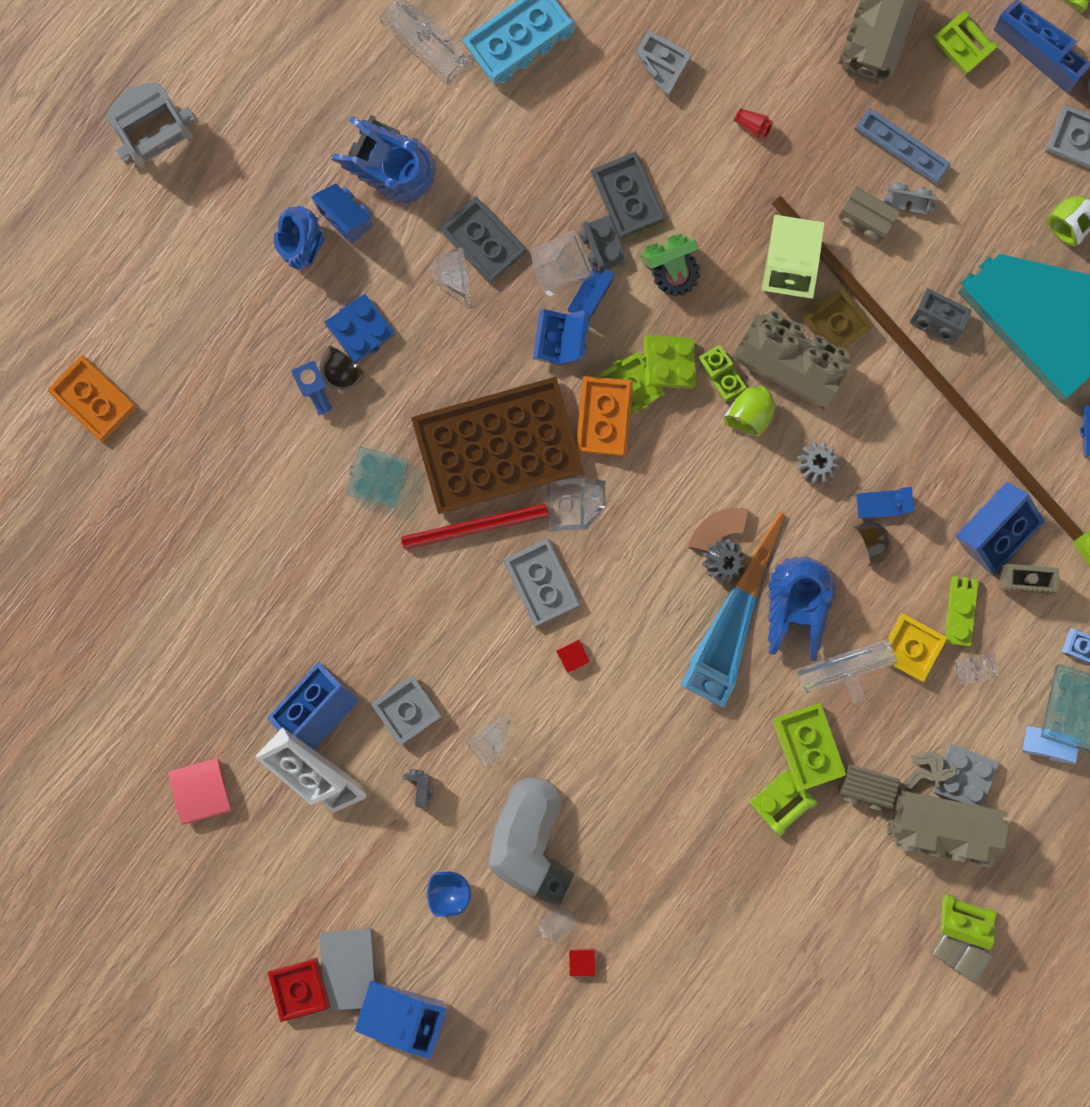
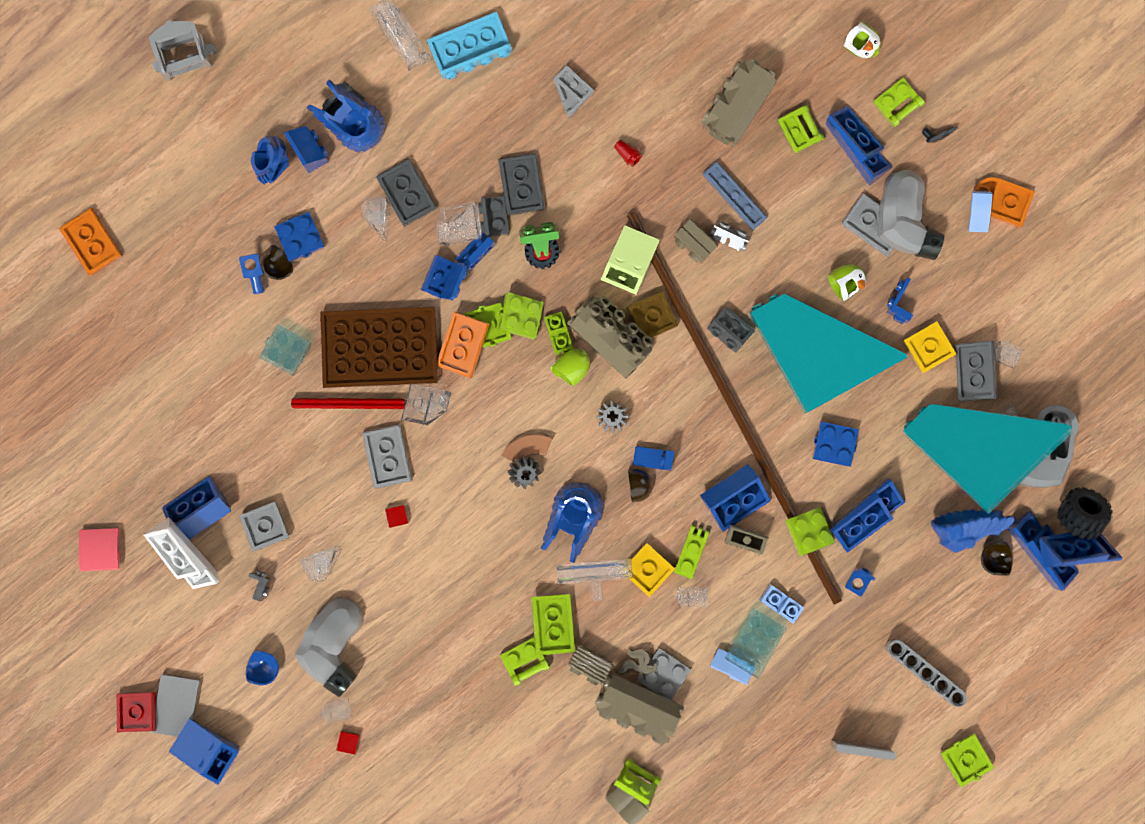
camera: 20 degrees right, 0 degrees up
(719, 654) = (503, 541): dark azure plate -> none

